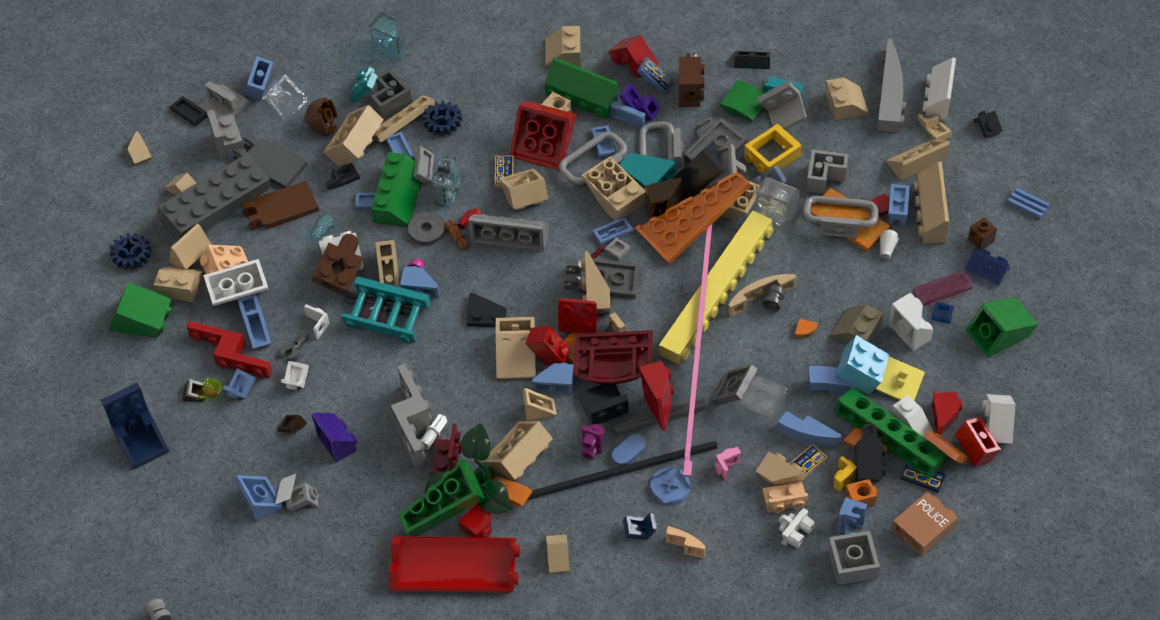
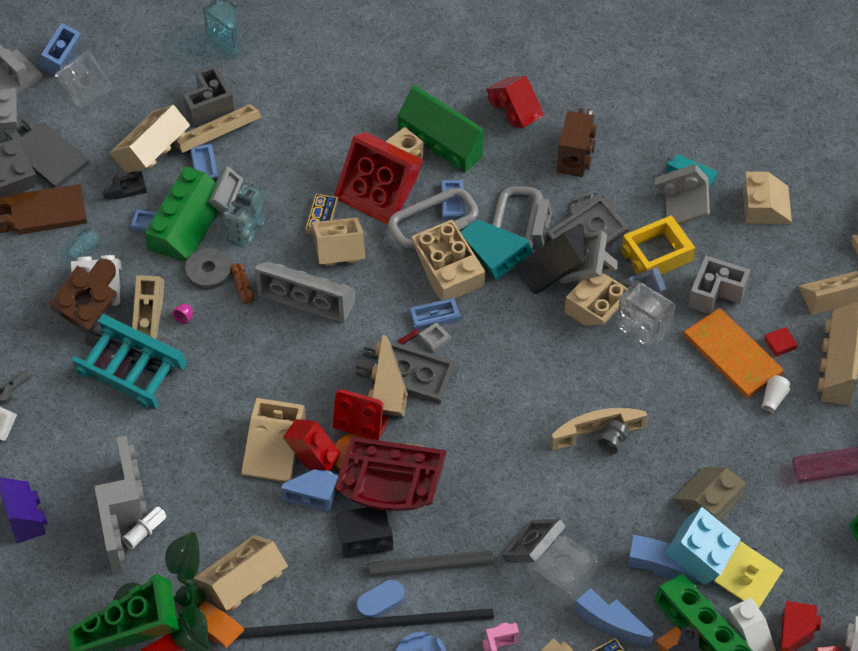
camera: 10 degrees right, 0 degrees up
(318, 315) = (49, 356): white bracket -> none
(319, 113) = (118, 105): reddish brown cylinder -> none
(365, 83) = (184, 74): teal plate -> none
(419, 280) = (177, 332): medium blue slope -> none
(442, 118) = (264, 136): dark blue gear -> none
(446, 452) = (150, 558): dark red bracket -> none
(465, 217) = (268, 258): red arm -> none
(483, 312) = (247, 385): black wing -> none
(538, 405) = (281, 519): tan slope -> none
(564, 45) = (436, 73): tan slope -> none
(592, 440) = (336, 578): magenta hips -> none
(616, 323) = (406, 432): tan tile -> none
(627, 114) = (490, 171): medium blue tile -> none
(645, 104) = (504, 163): dark purple brick -> none
(654, 75) = (535, 128): tile -> none
(657, 391) = (434, 531): red slope -> none
(662, 196) = (504, 286): dark brown slope -> none
(687, 220) = (527, 317): orange wing -> none
(687, 463) = (447, 634): bright pink piece -> none
(720, 281) = (542, 410): light yellow brick -> none
(743, 100) = (636, 179): green slope -> none
(752, 60) = (661, 130): black slope -> none
(805, 328) = (643, 483): orange tile -> none
(840, 226) = (717, 359): light grey bar -> none
(892, 93) = (823, 209): light grey slope -> none
(898, 204) = (800, 344): medium blue hinge -> none
(908, 323) = (776, 501): white slope -> none
(942, 312) = (824, 496): clear blue tile -> none

